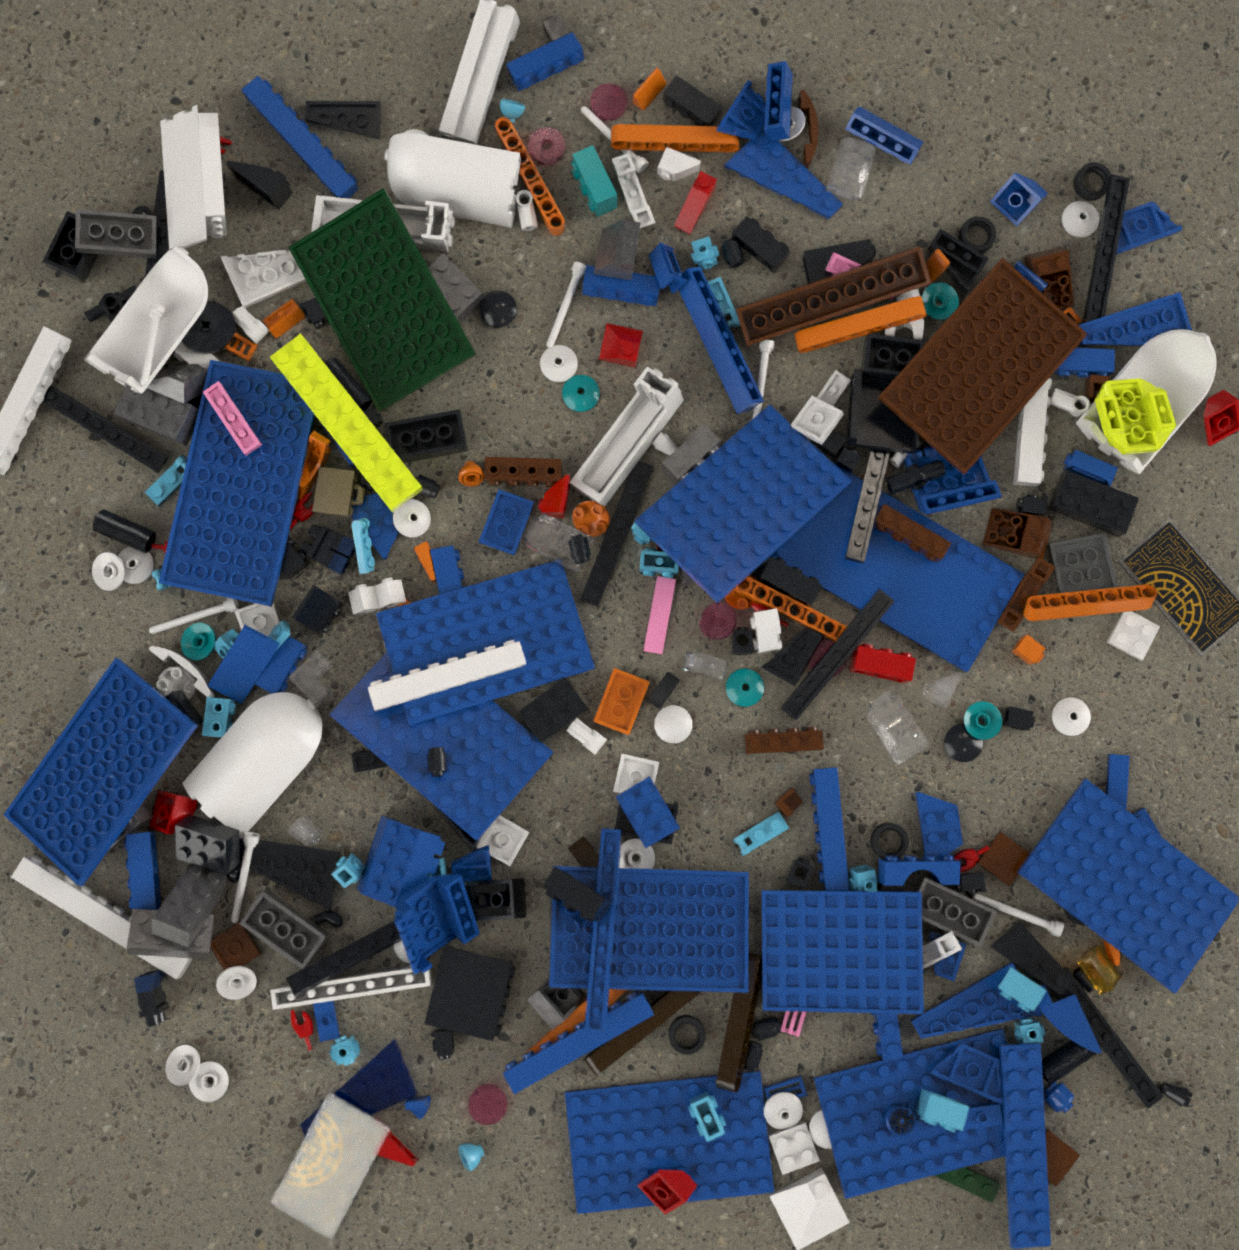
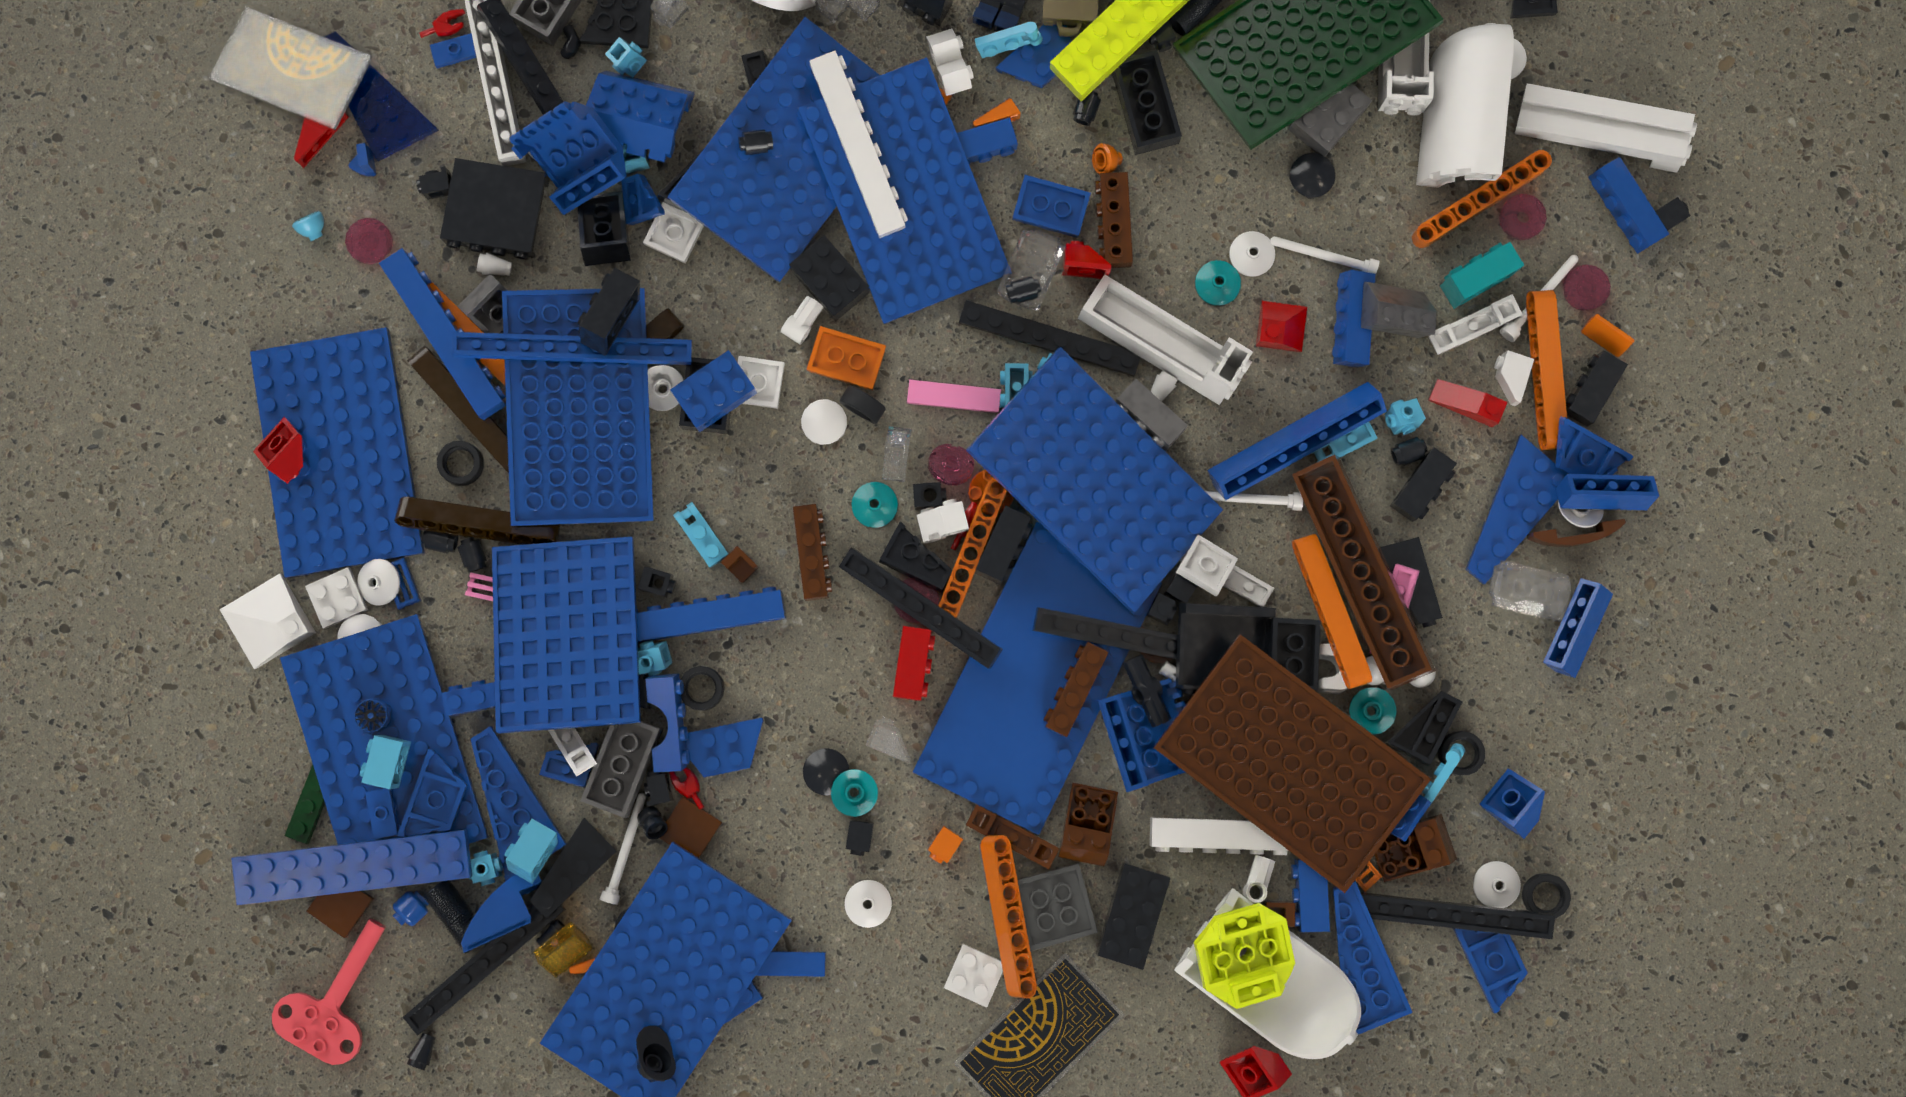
camera: 85 degrees right, 0 degrees up
(350, 1045) = (420, 72): medium azure brick -> none
(405, 525) = (1034, 95): white dish -> none
(511, 109) = (1564, 169): medium azure brick -> none
(518, 996) = (493, 265): none -> white cone
(526, 211) = (1436, 198): white piece -> none
(591, 518) = (1063, 304): orange dish -> none
(666, 267) = (1381, 369): blue window -> none
(709, 1121) = (365, 489): medium azure brick -> none
(896, 727) = (839, 688): clear slope -> none
(936, 265) = (1415, 700): orange slope -> none
(993, 247) = (1444, 771): none -> medium azure plate
(1000, 888) = (652, 823): none -> black wheel
(1032, 505) = (1124, 839): black brick -> none
(1090, 467) = (1177, 909): blue window -> none
(1150, 1178) = (320, 1024): none -> coral piece
(1192, 897) = (655, 1054): none -> black piece

